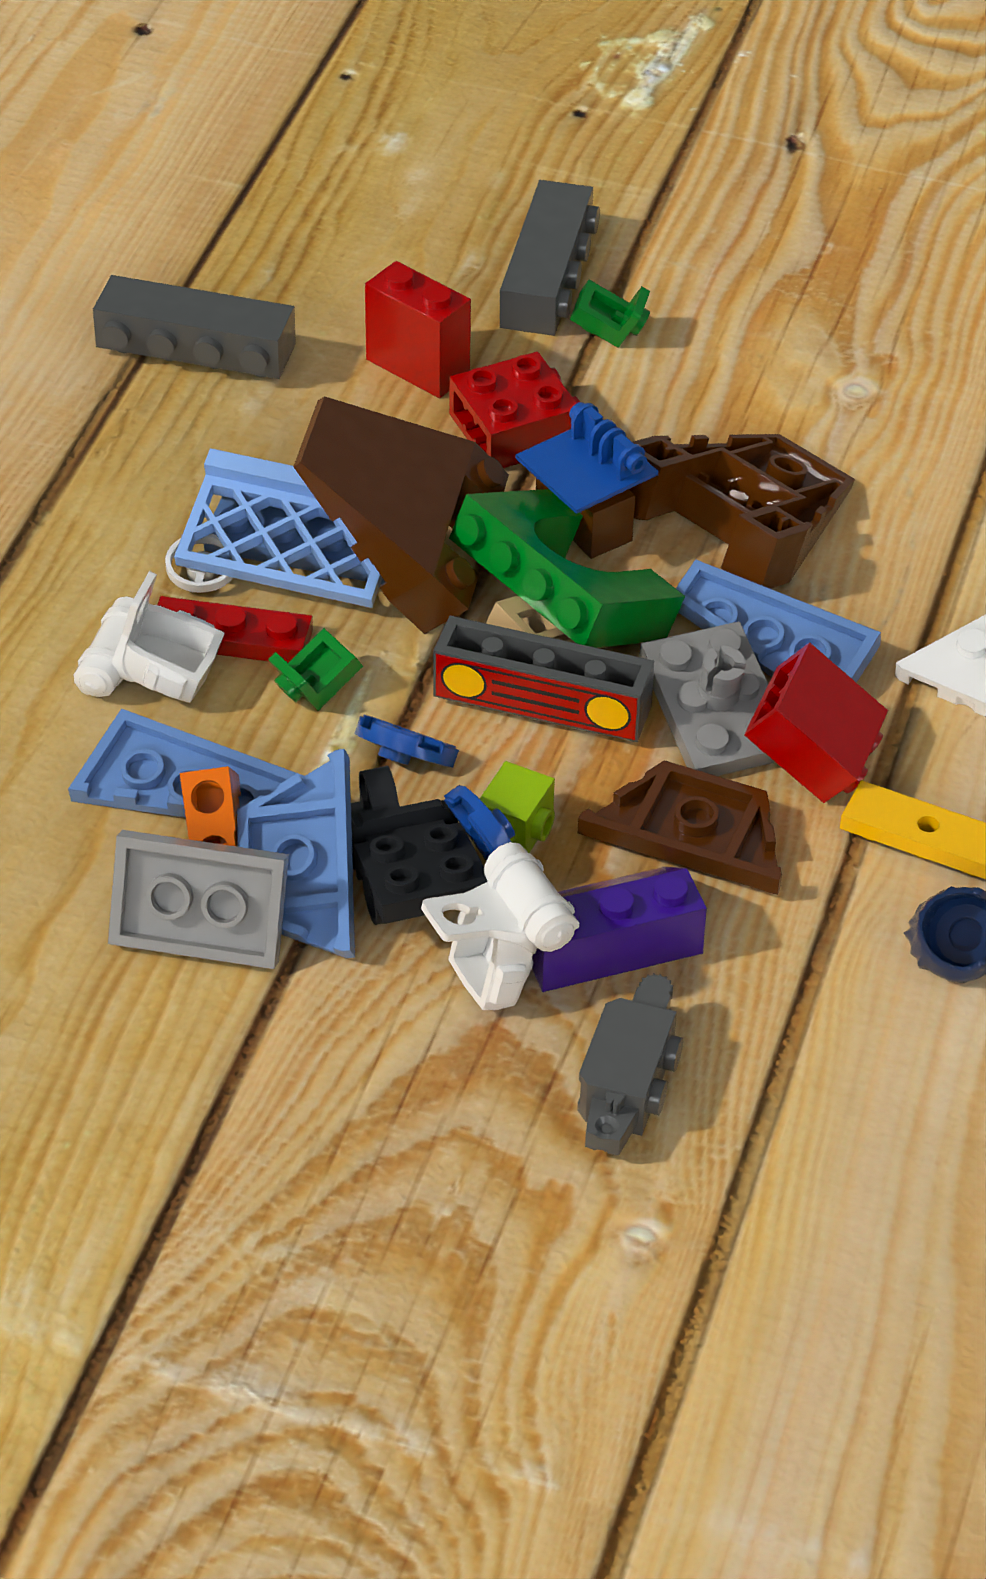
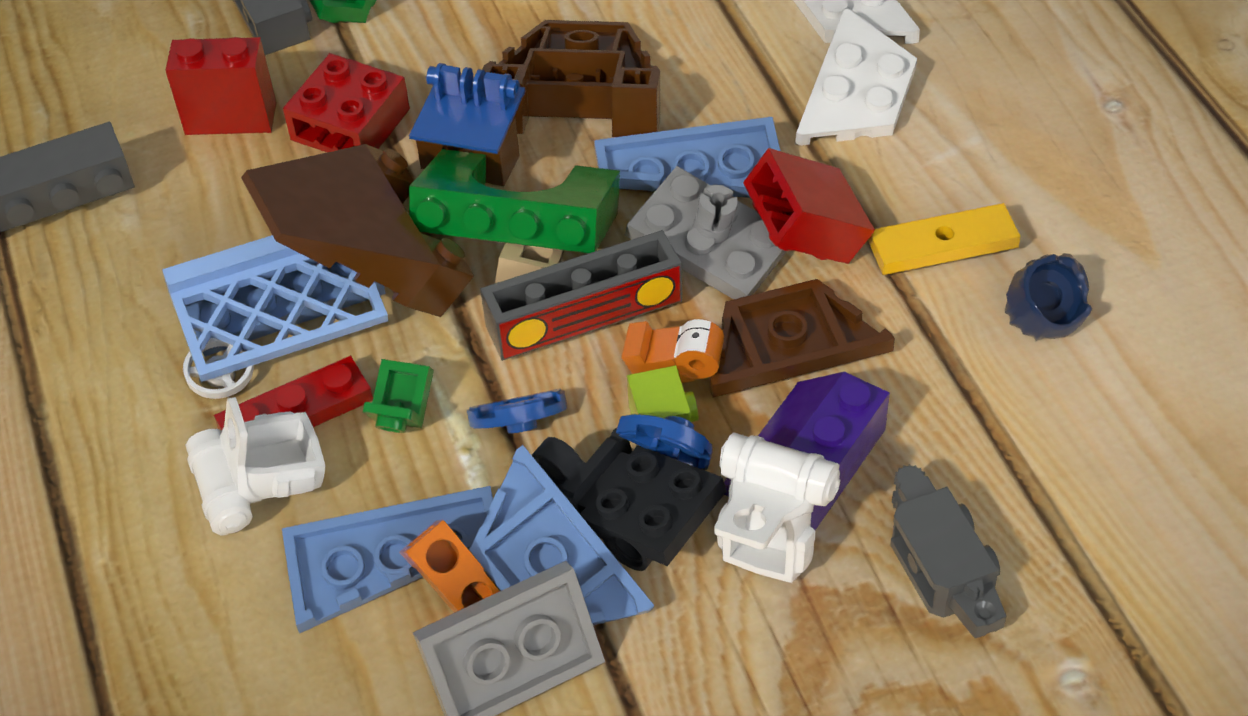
camera: 35 degrees left, 5 degrees up
(579, 772) = (691, 347): none -> orange leg

